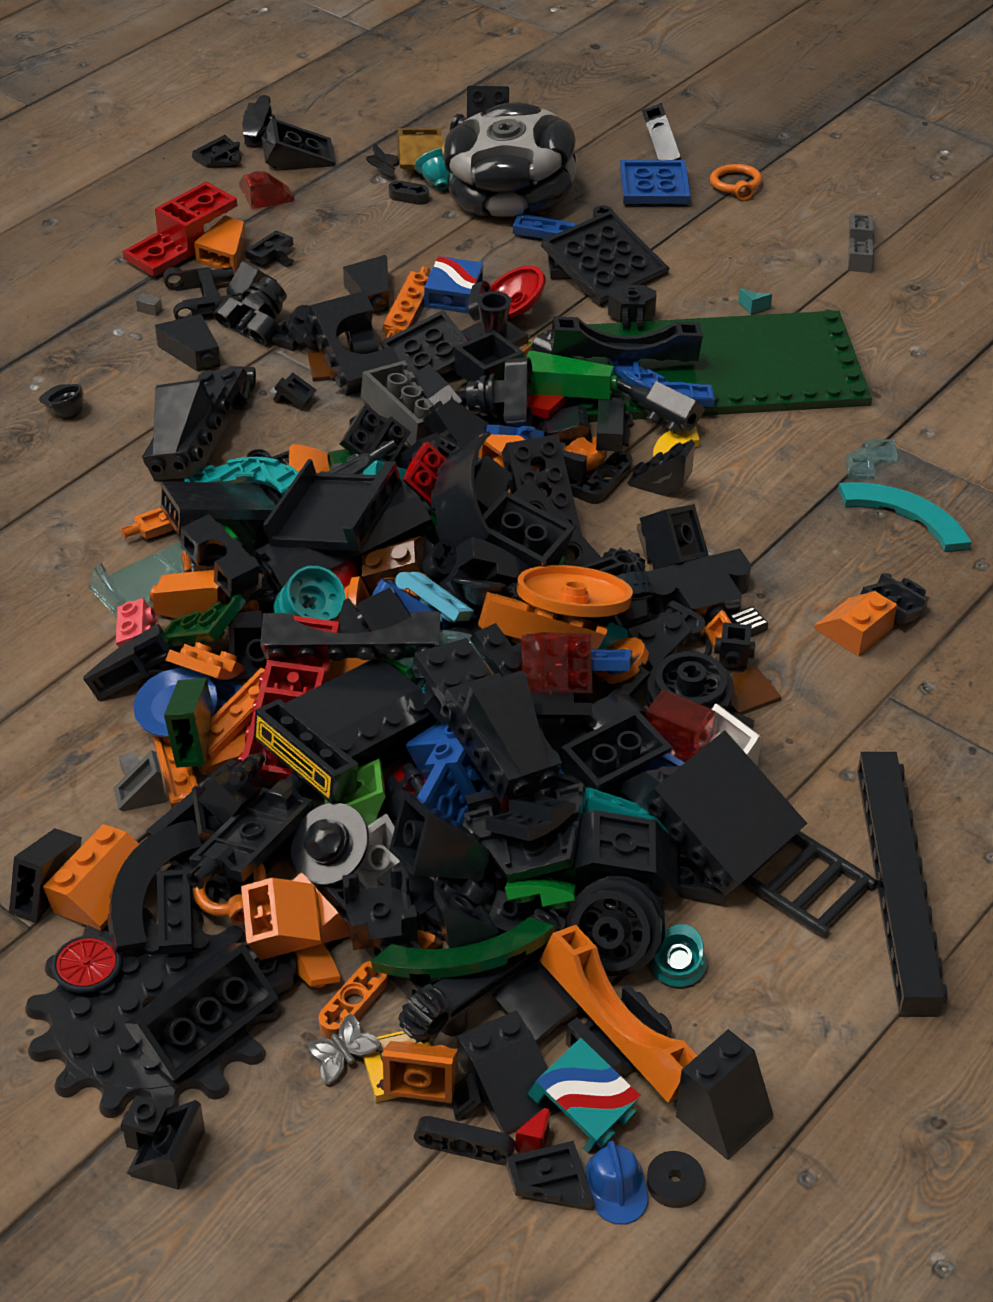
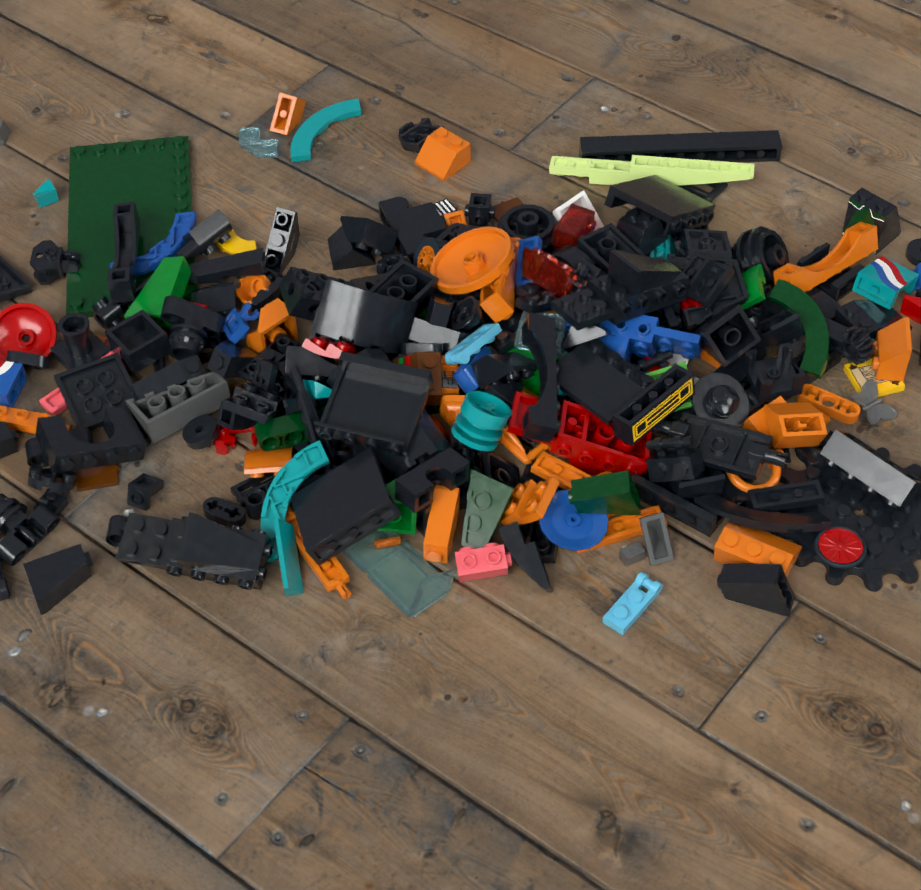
camera: 90 degrees left, 5 degrees up
(60, 764) = (632, 603): none -> medium azure plate
(64, 400) = (140, 670): black hat -> none
(149, 486) = (288, 558): none -> teal slope
(264, 437) = (224, 511): none -> black beam
(830, 834) = (674, 170): none -> yellowish green slope
(925, 476) = (287, 114): none -> orange slope

